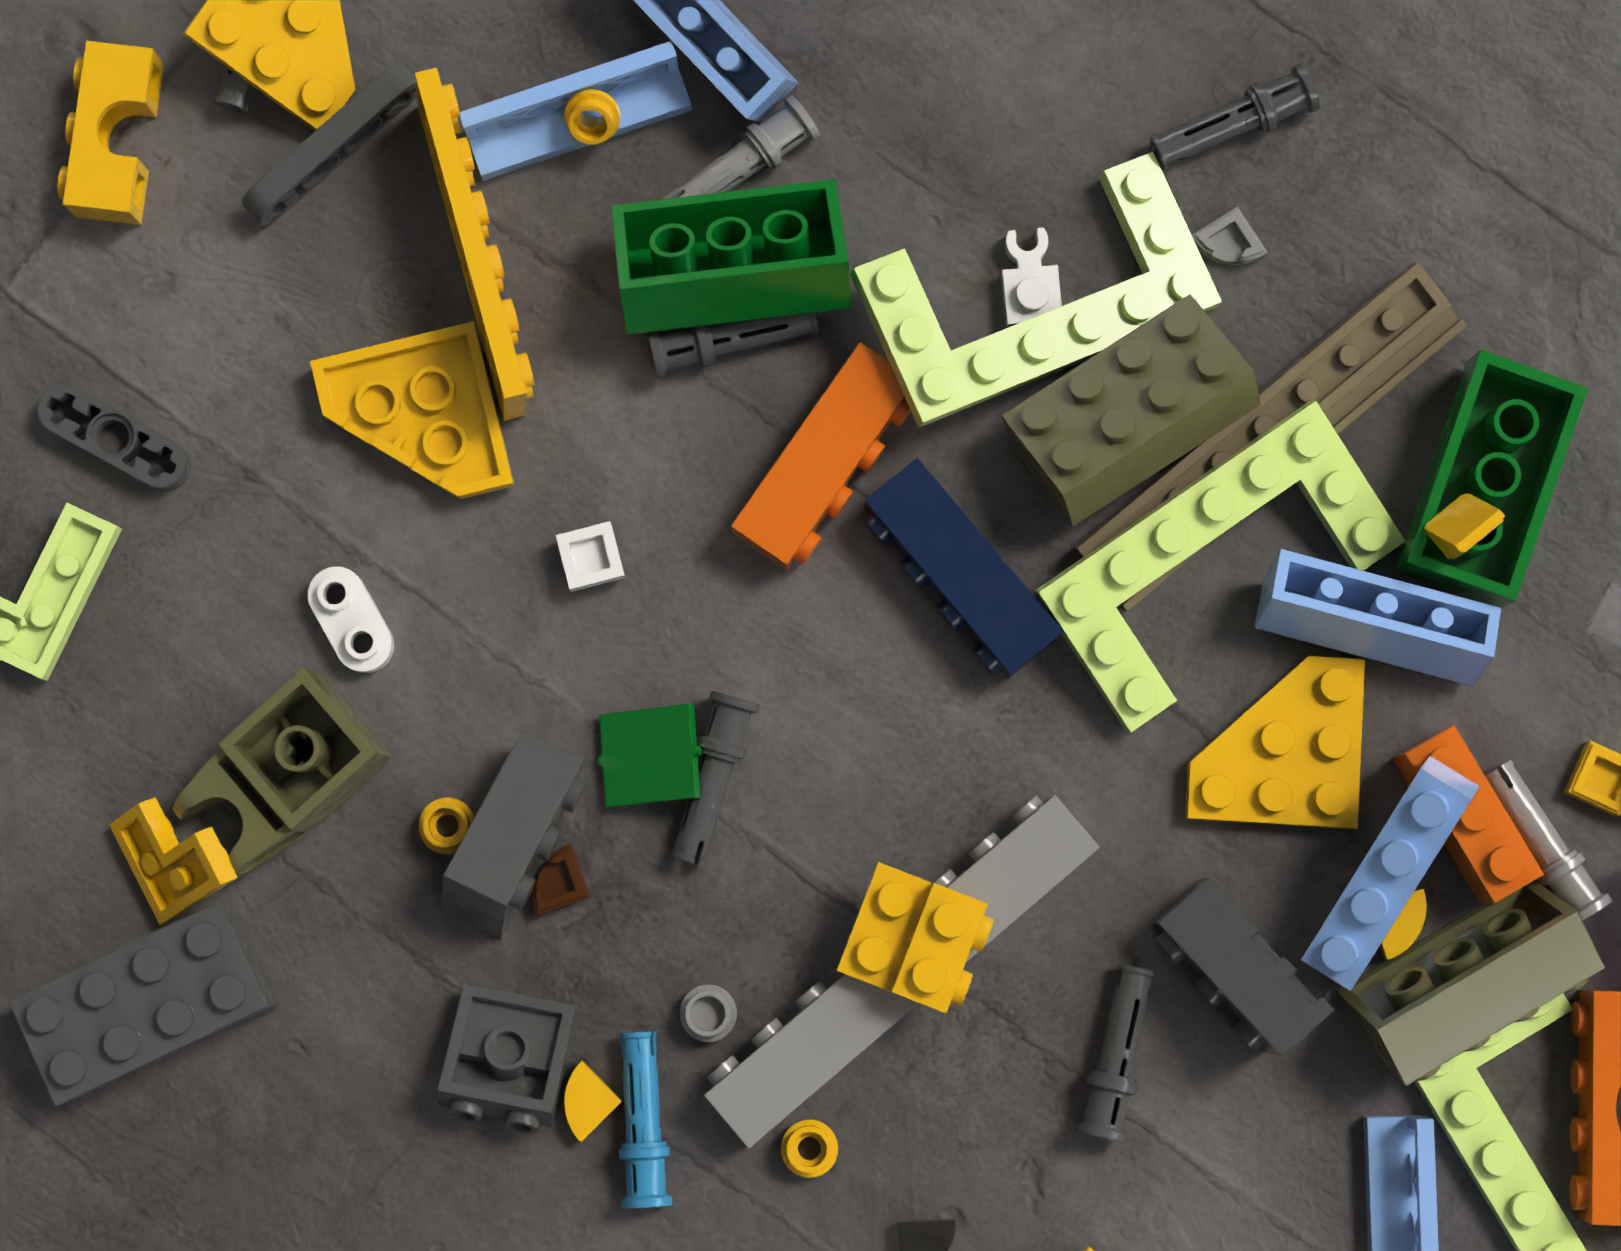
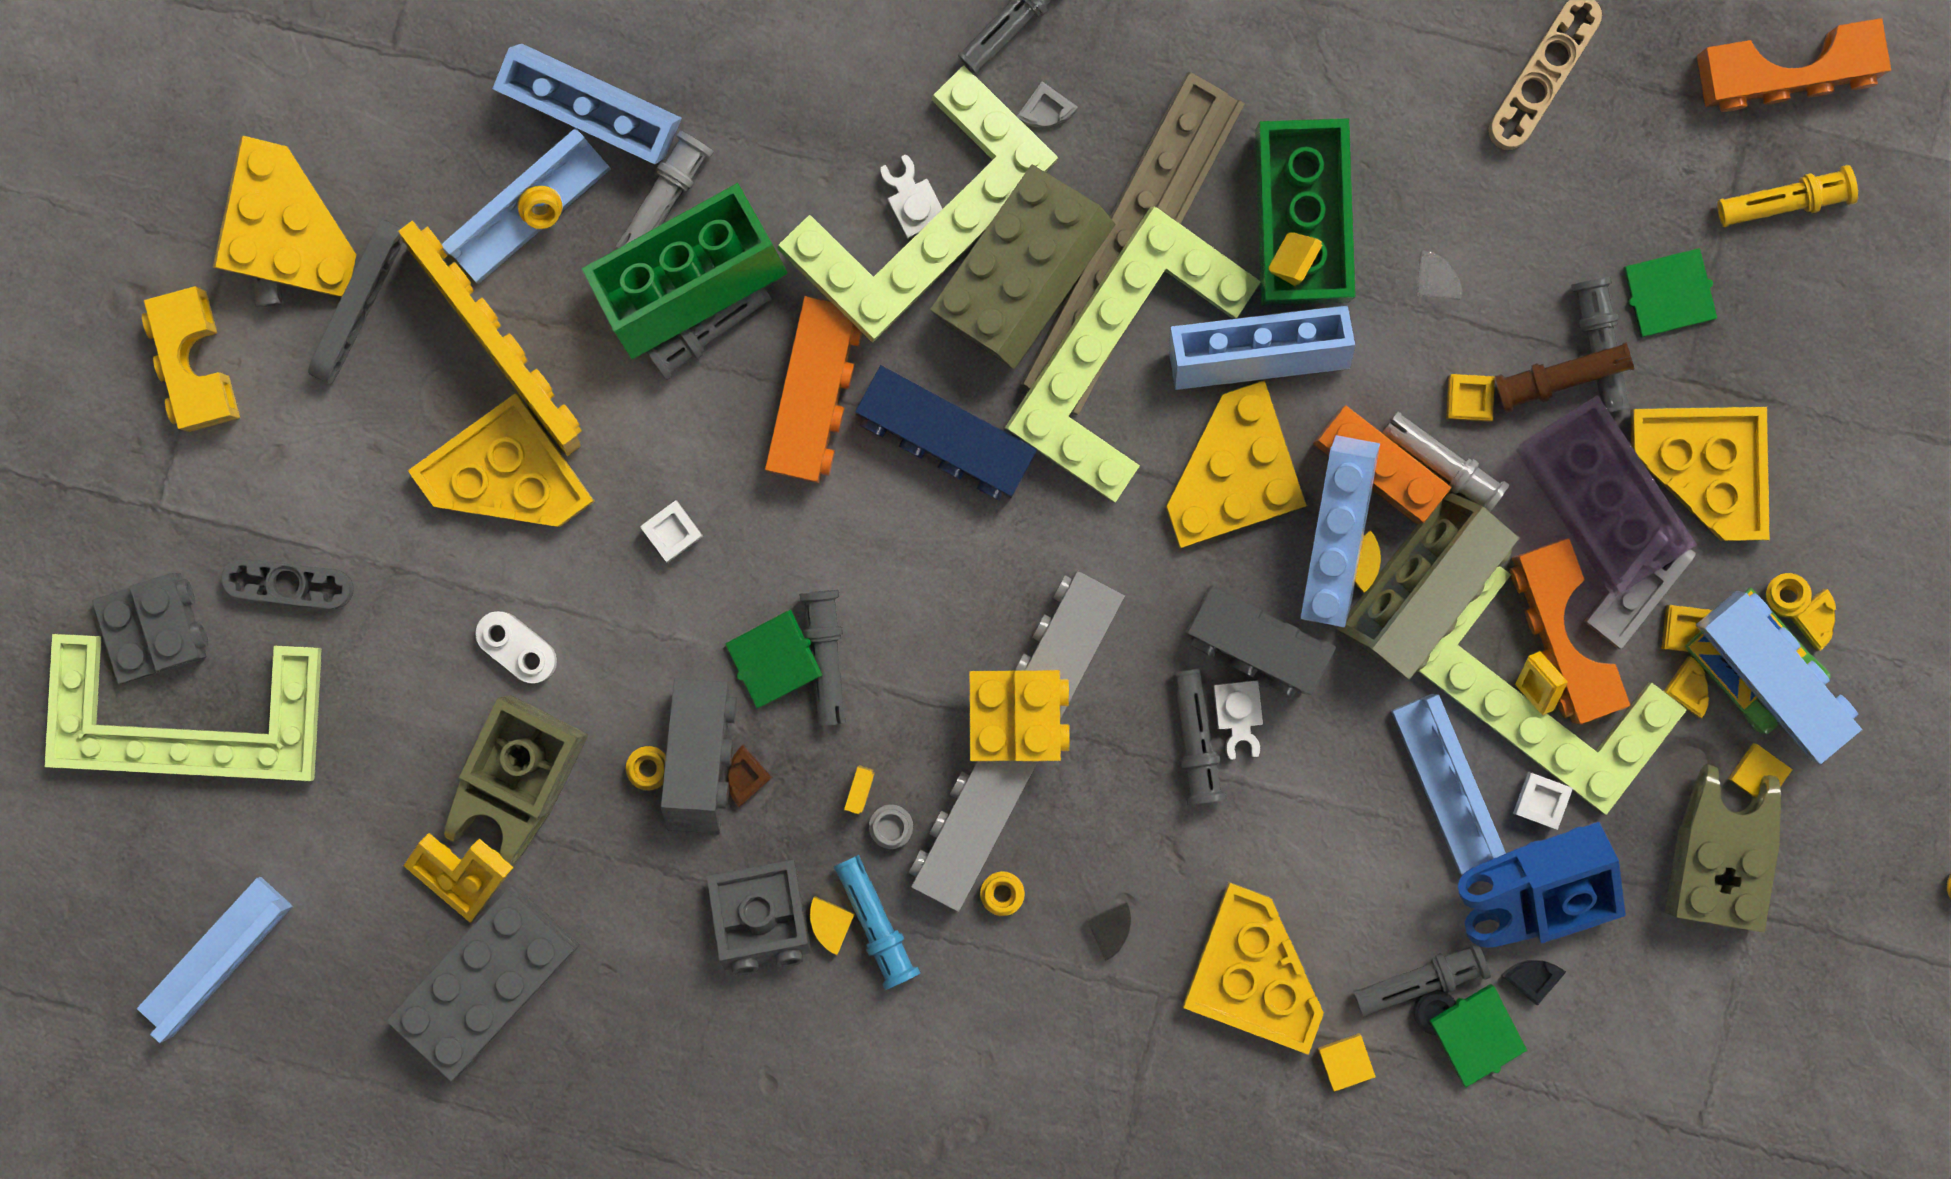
camera: 20 degrees left, 5 degrees up
(688, 953) = (859, 789): none -> yellow tile
(1182, 1040) = (1238, 709): none -> white plate
(1561, 1155) = (1541, 683): none -> yellow tile

